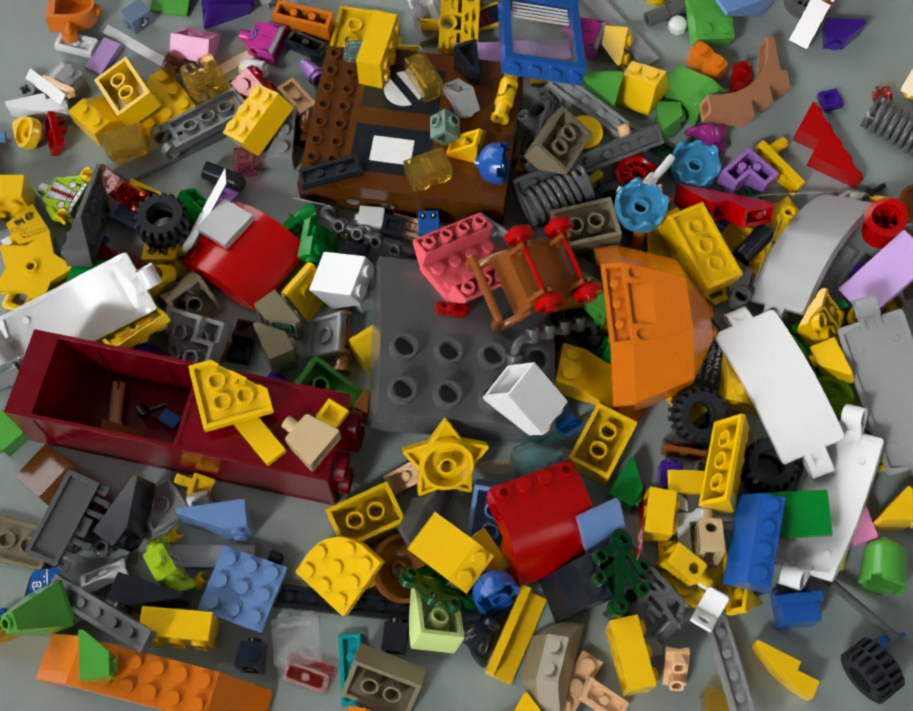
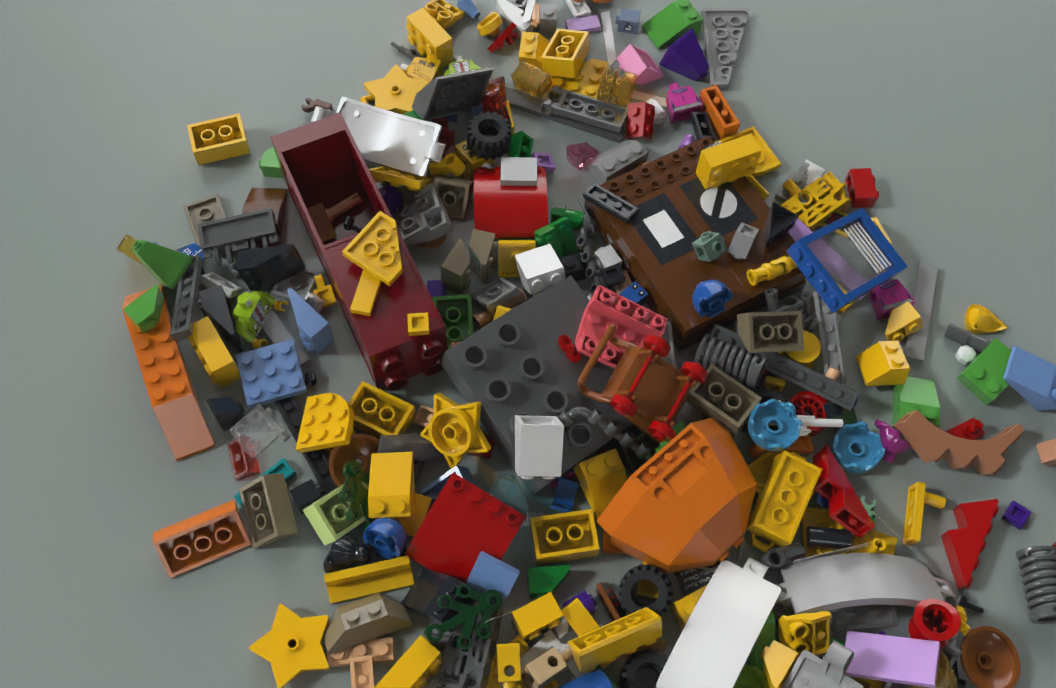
camera: 50 degrees right, 5 degrees down
(172, 64) = (611, 60): reddish brown piece -> none
(206, 211) = (520, 154): white sticker -> none
(212, 173) = (558, 151): black brick -> none
(242, 342) = (441, 250): black slope -> none
(258, 119) = (614, 136): yellow brick -> none
(296, 95) = (659, 147): light nougat plate -> none
(310, 439) = (387, 323): tan torso -> none
(424, 76) = (736, 205): clear yellow brick -> none
(428, 169) = (667, 259): clear yellow brick -> none
(468, 145) = (712, 270): yellow slope -> none
(603, 85) = (854, 336): bright green slope -> none
(669, 117) = (876, 402): bright green slope -> none
(706, 62) = (952, 397): orange brick -> none
(748, 170) = (888, 489): medium lavender brick -> none

